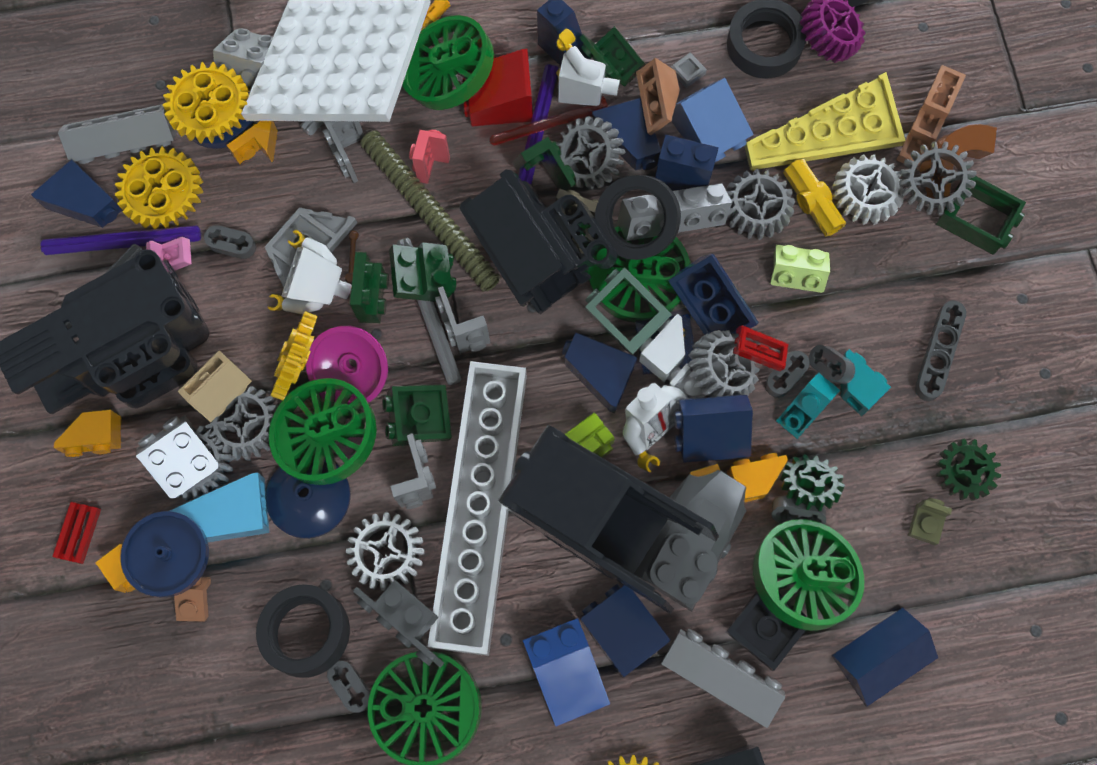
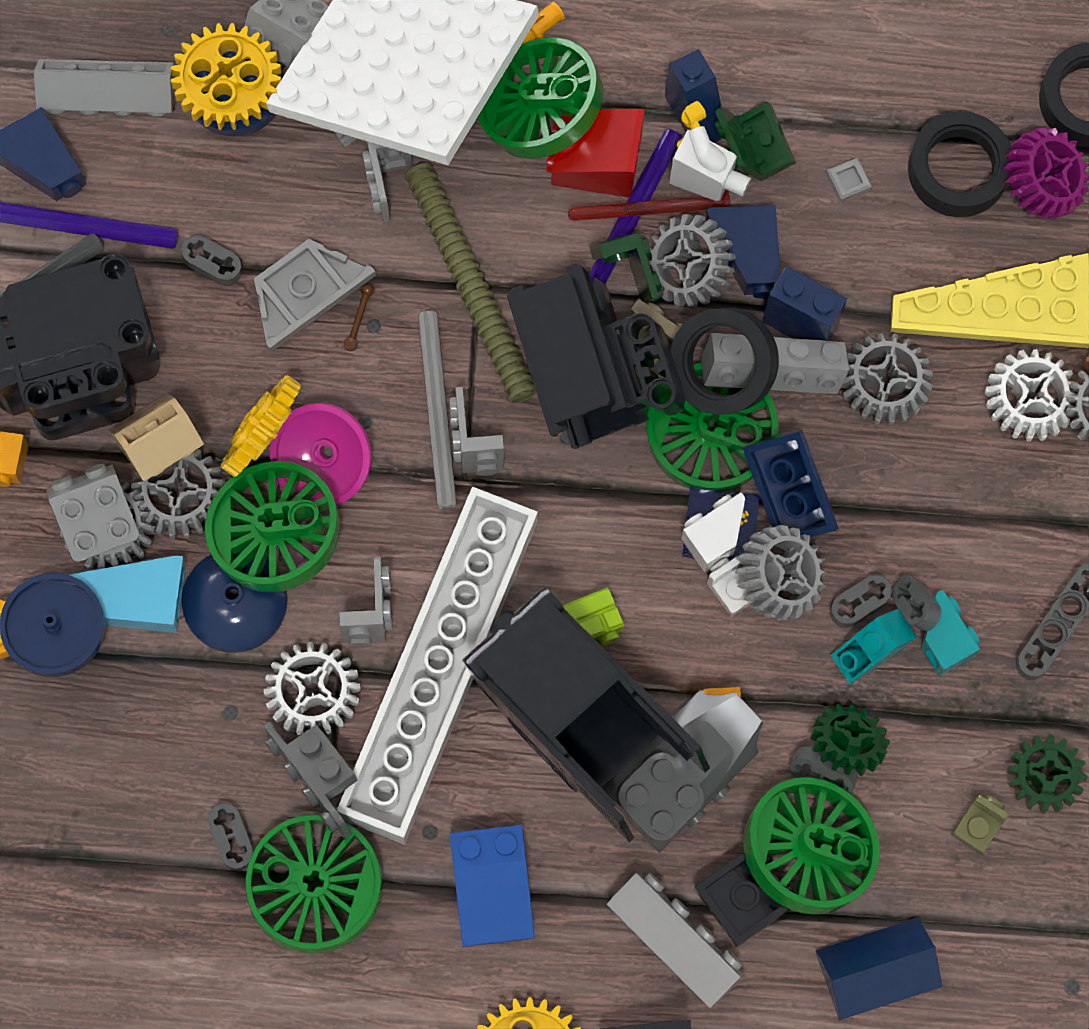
camera: 10 degrees right, 0 degrees up
(159, 188) = (160, 188): yellow gear -> none
(176, 252) = (142, 256): bright pink bracket -> none
(193, 603) = (68, 692): nougat bracket -> none
(260, 136) = (280, 134): light orange slope -> none
(276, 610) = (182, 717): black tyre -> none
(311, 278) = (303, 334): white torso -> none
(368, 289) = (369, 366): dark green plate -> none
(418, 412) = (393, 530): dark green plate -> none
(421, 271) = (441, 359): dark green plate -> none
(429, 147) = (490, 202): coral bracket -> none
(600, 368) = (630, 536): dark blue slope -> none
(612, 281) = (699, 504): sand green window -> none
(623, 629) = (573, 854): dark blue brick -> none
(649, 419) = (679, 609): white torso -> none
(658, 94) = (798, 205): nougat slope -> none
(712, 118) = (856, 256): medium blue slope -> none
(714, 428) = (747, 644): dark blue brick -> none
(757, 475) = (785, 715): light orange slope -> none
(761, 353) = (809, 546): red tile -> none
(800, 268) = (915, 473): yellowish green bracket -> none
(814, 197) = (960, 388): yellow piece -> none

